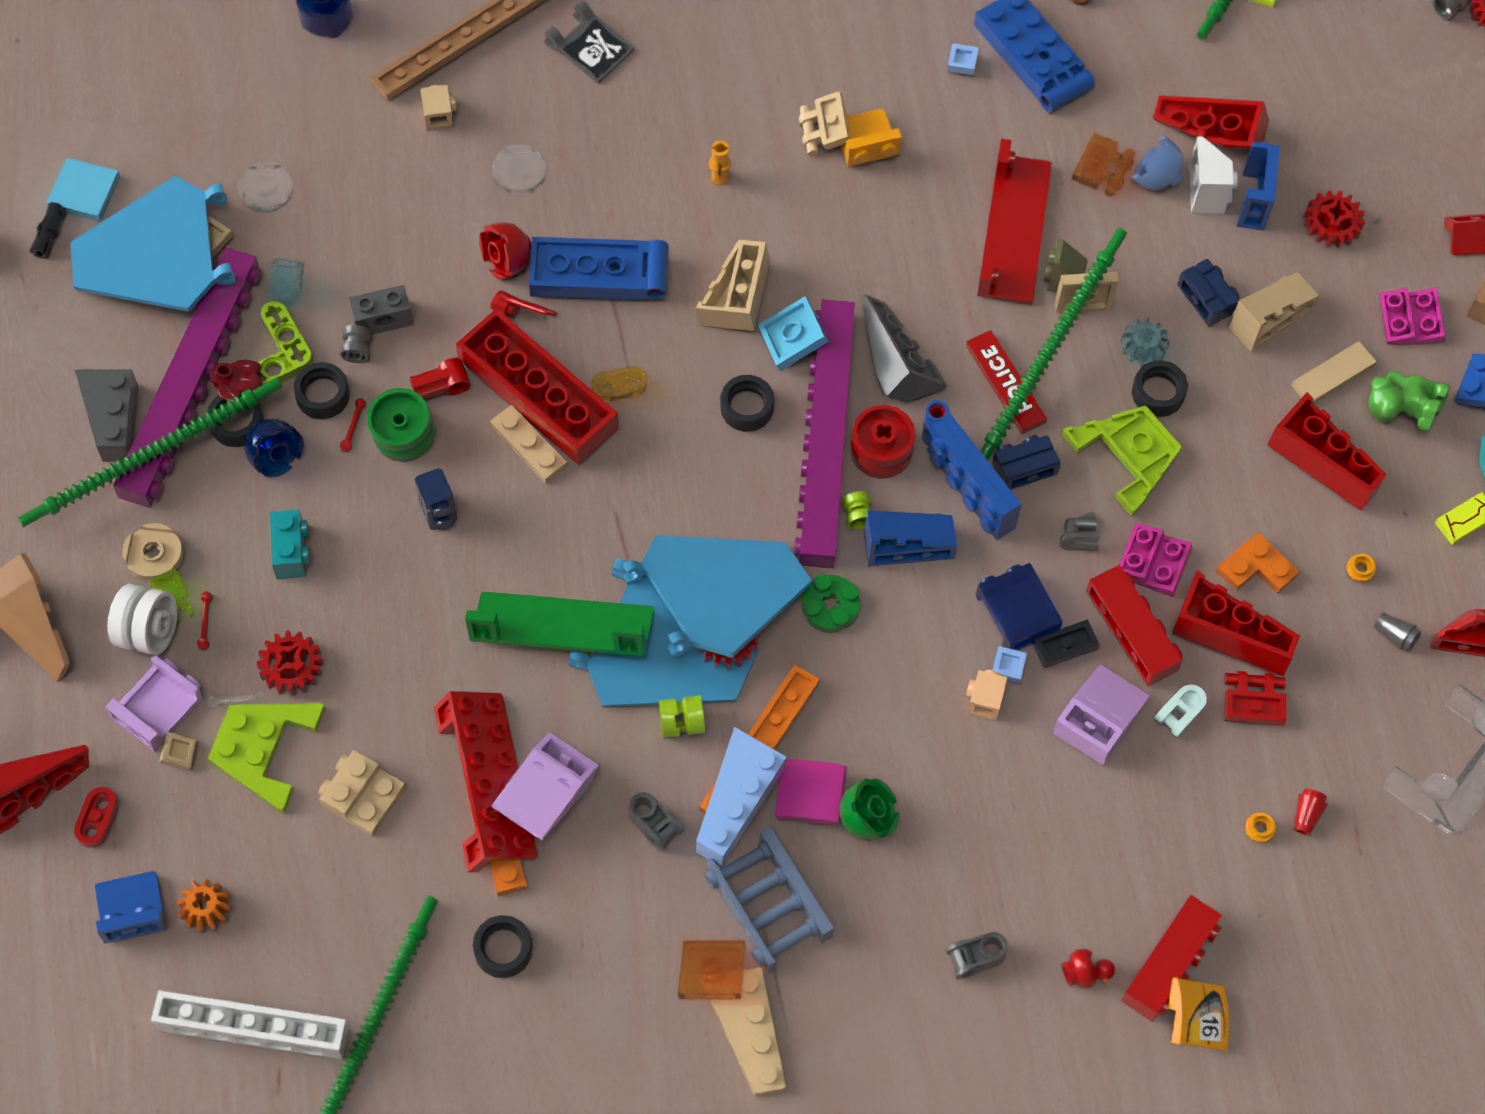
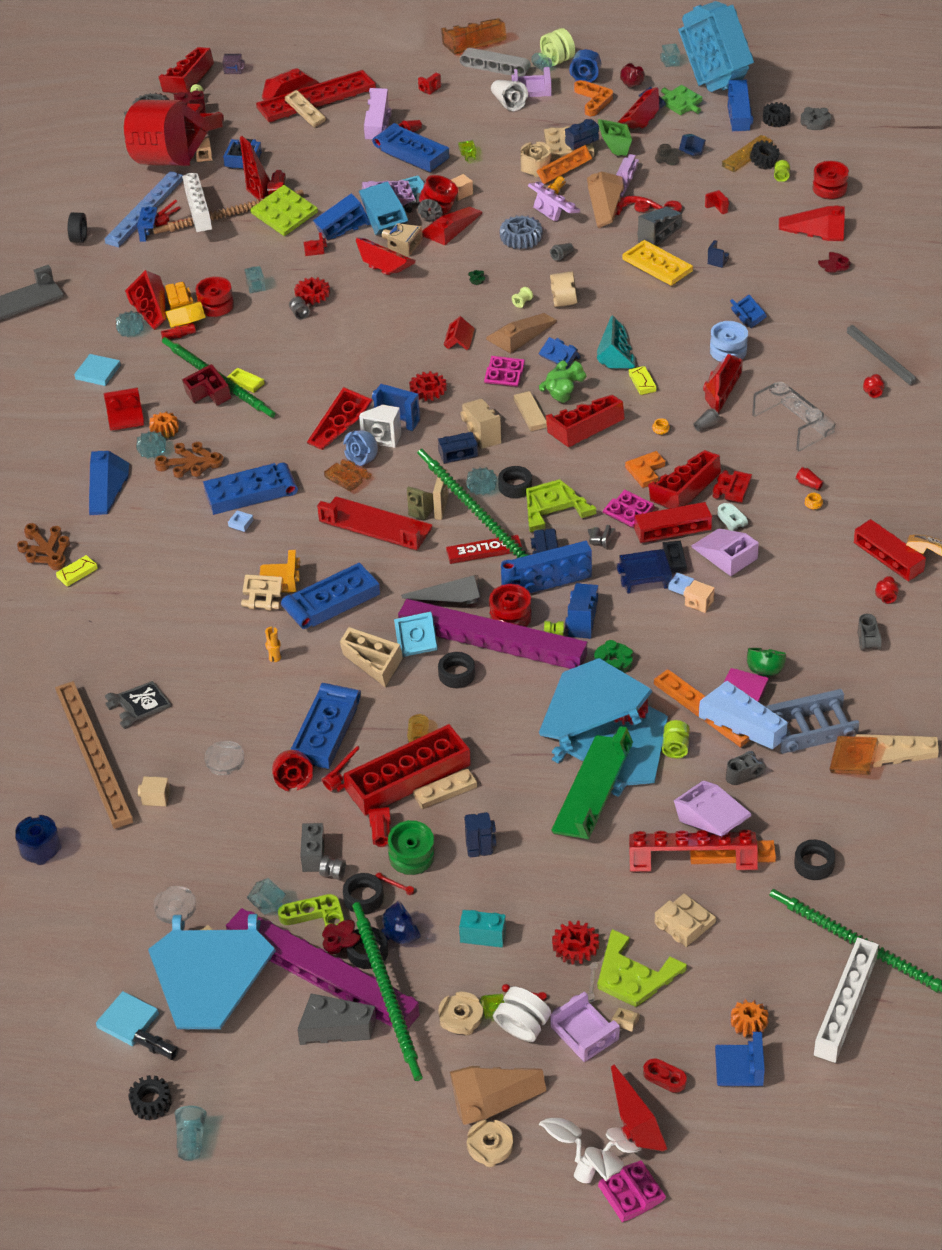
camera: 70 degrees left, 20 degrees down
(841, 210) = (331, 596): none -> blue hinge

